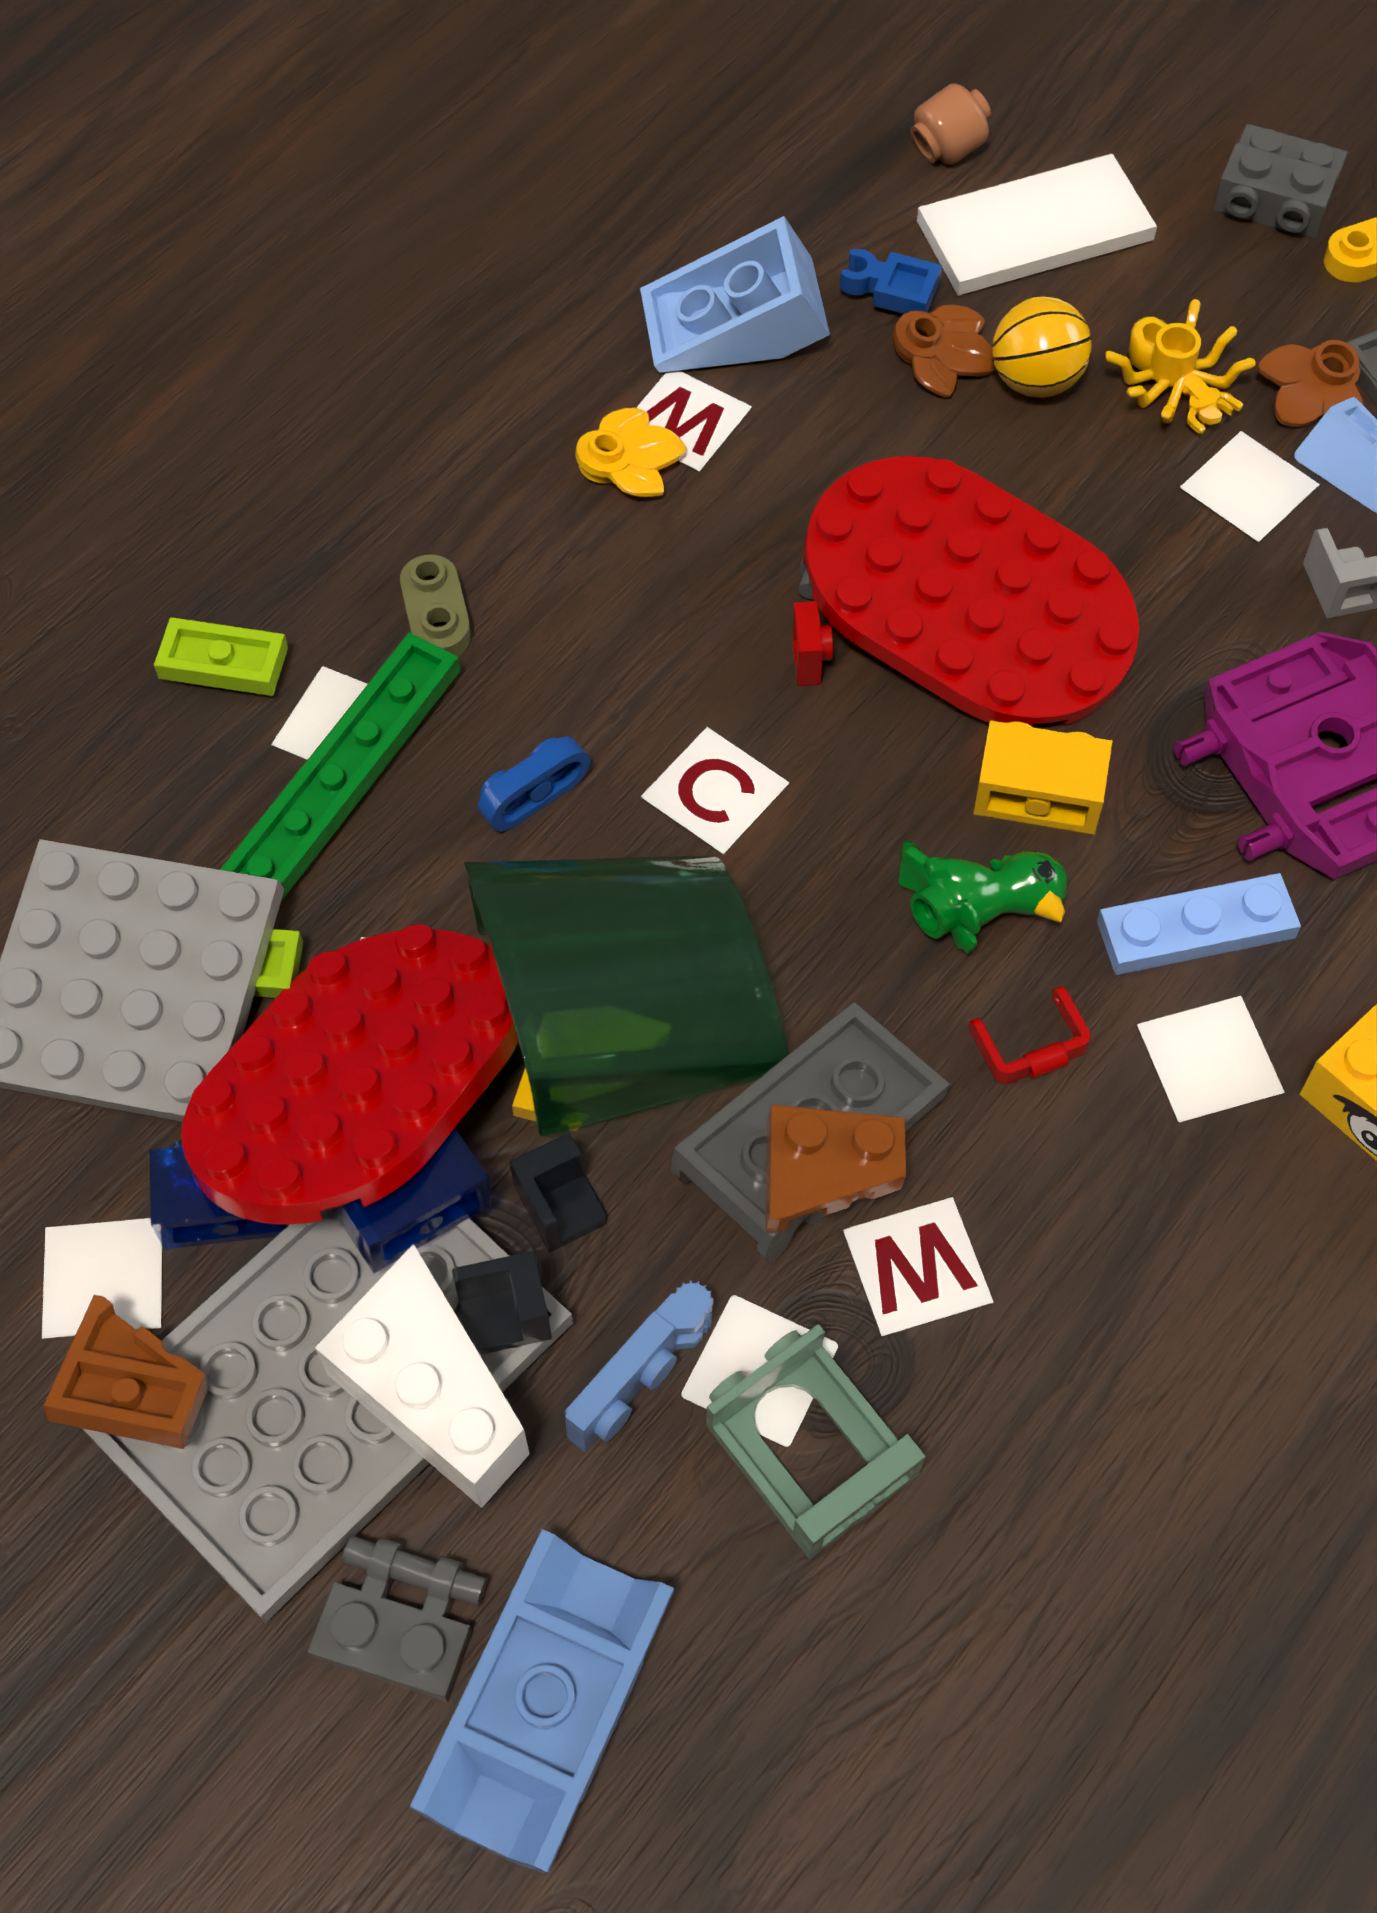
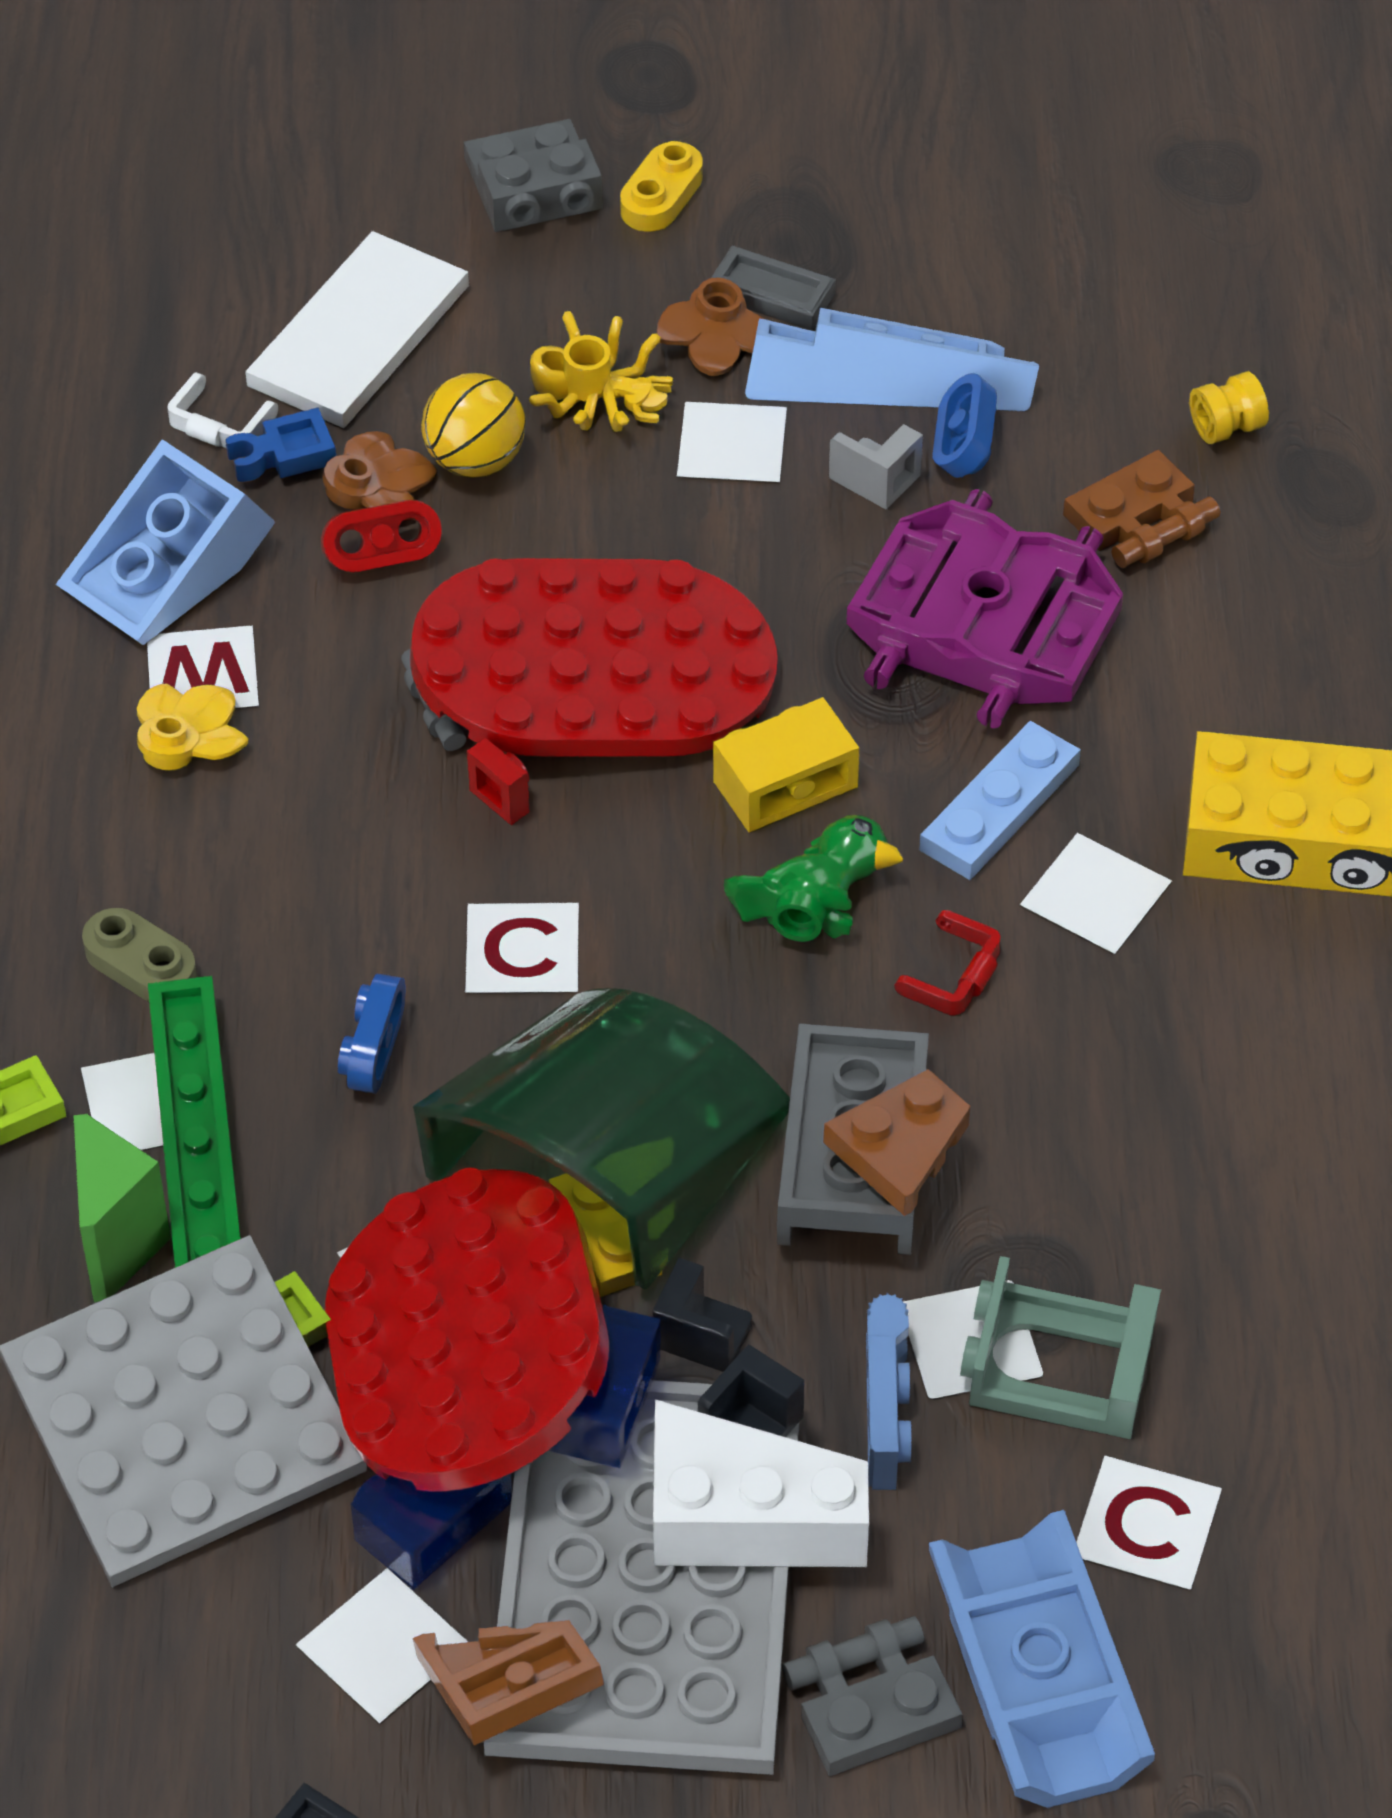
camera: 40 degrees left, 10 degrees down
(203, 788) = (118, 1204): none -> bright green slope
(755, 1646) = (1147, 1522): none -> white sticker
(854, 235) = (206, 428): none -> white piece
(900, 395) = (380, 535): none -> red plate
(917, 1266) = (1018, 1185): white sticker -> none
(951, 124) = (210, 284): nougat head -> none

